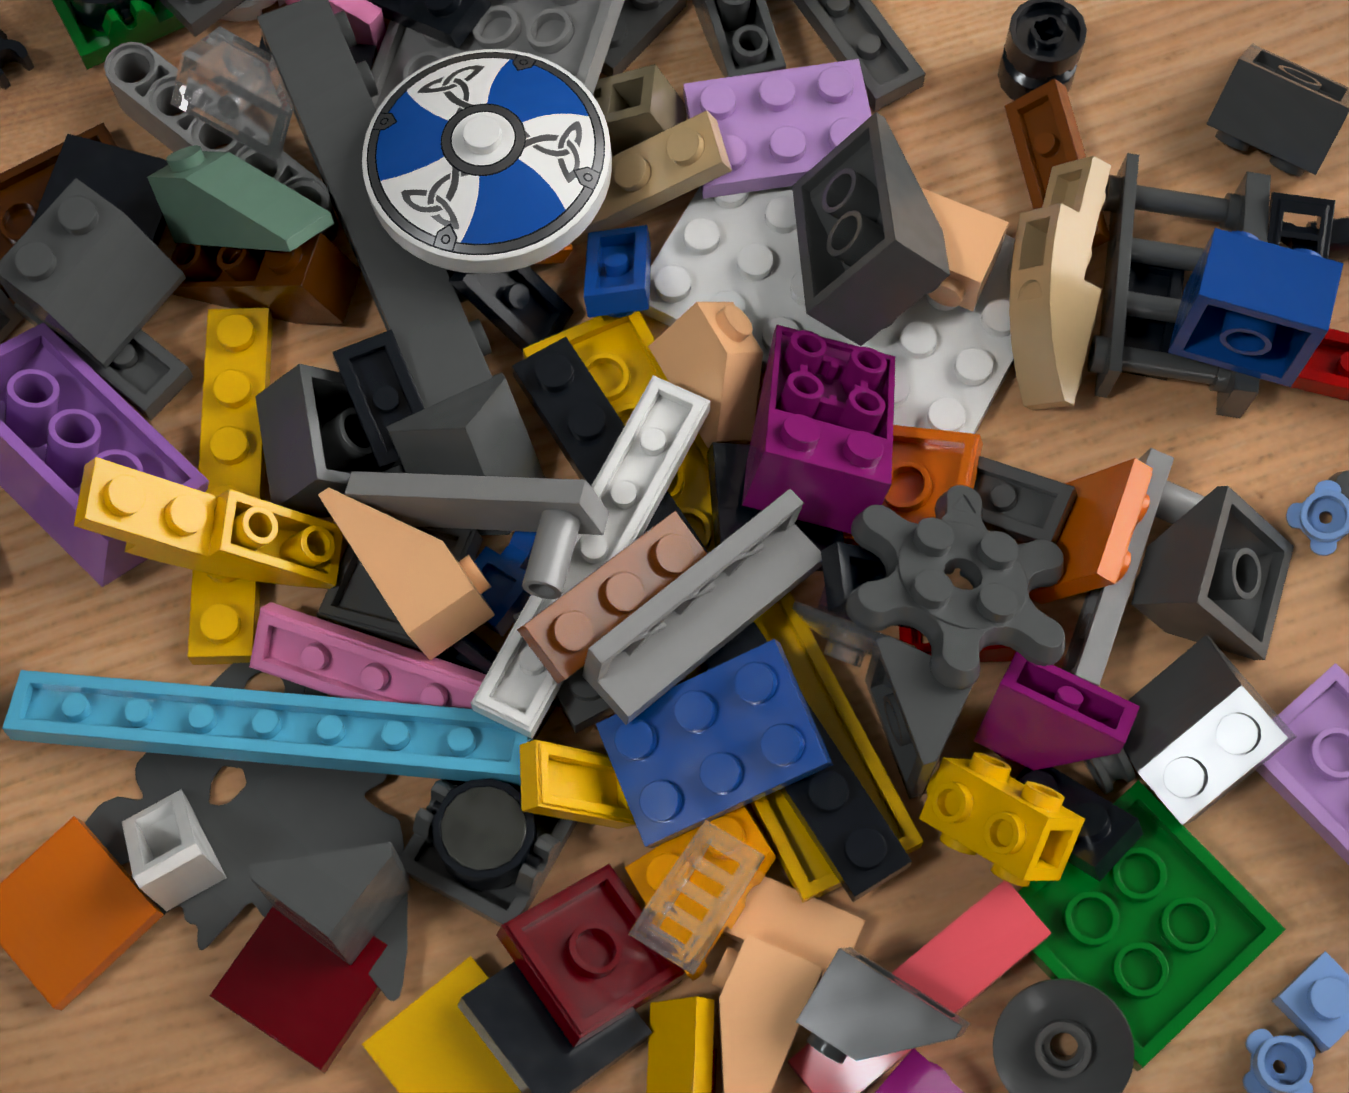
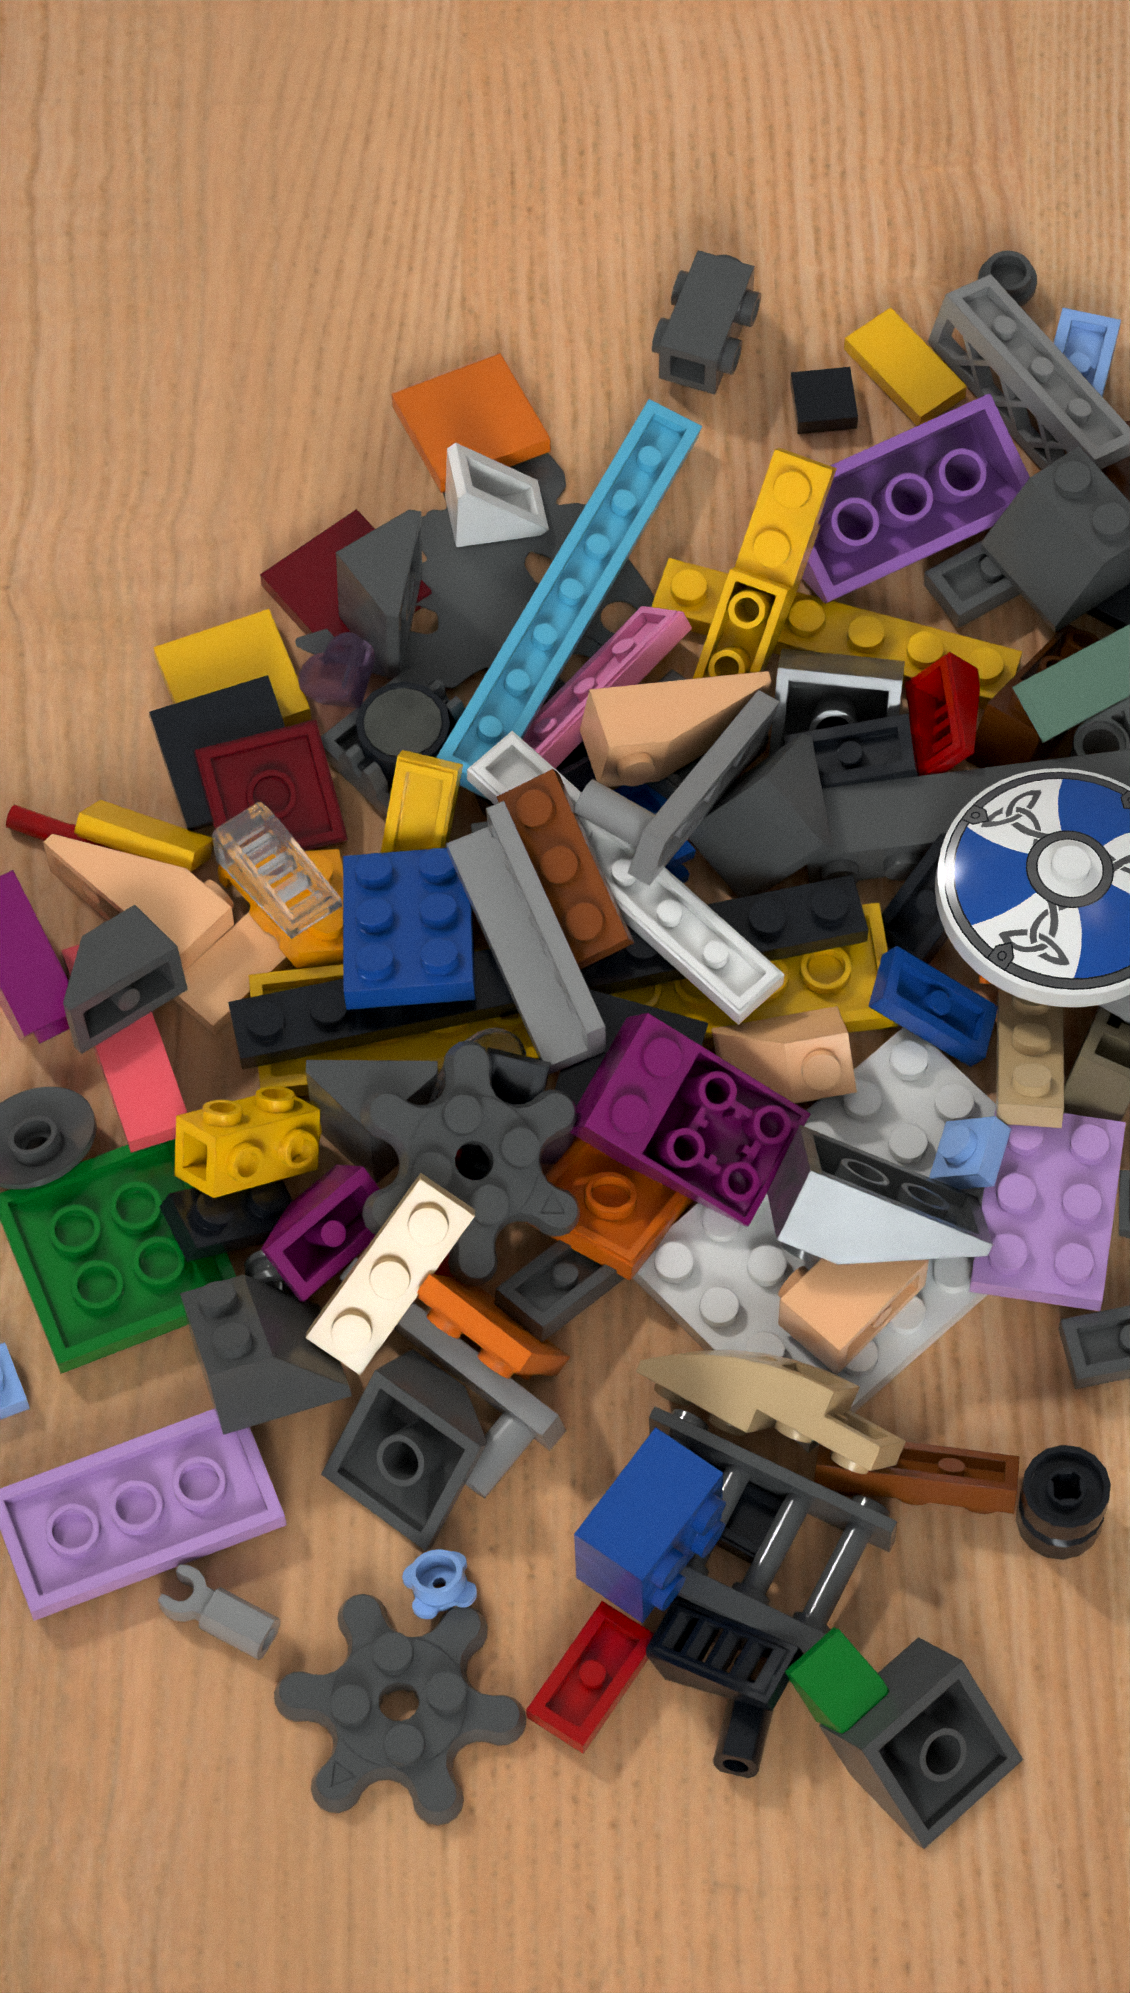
camera: 110 degrees right, 5 degrees down
(265, 333) = (943, 713): none -> red slope
(427, 931) = (339, 673): none -> clear purple tile
(762, 190) = (970, 1152): none -> light blue plate
(1098, 619) = (390, 1273): none -> plate
(1288, 155) = (836, 1682): none -> green slope

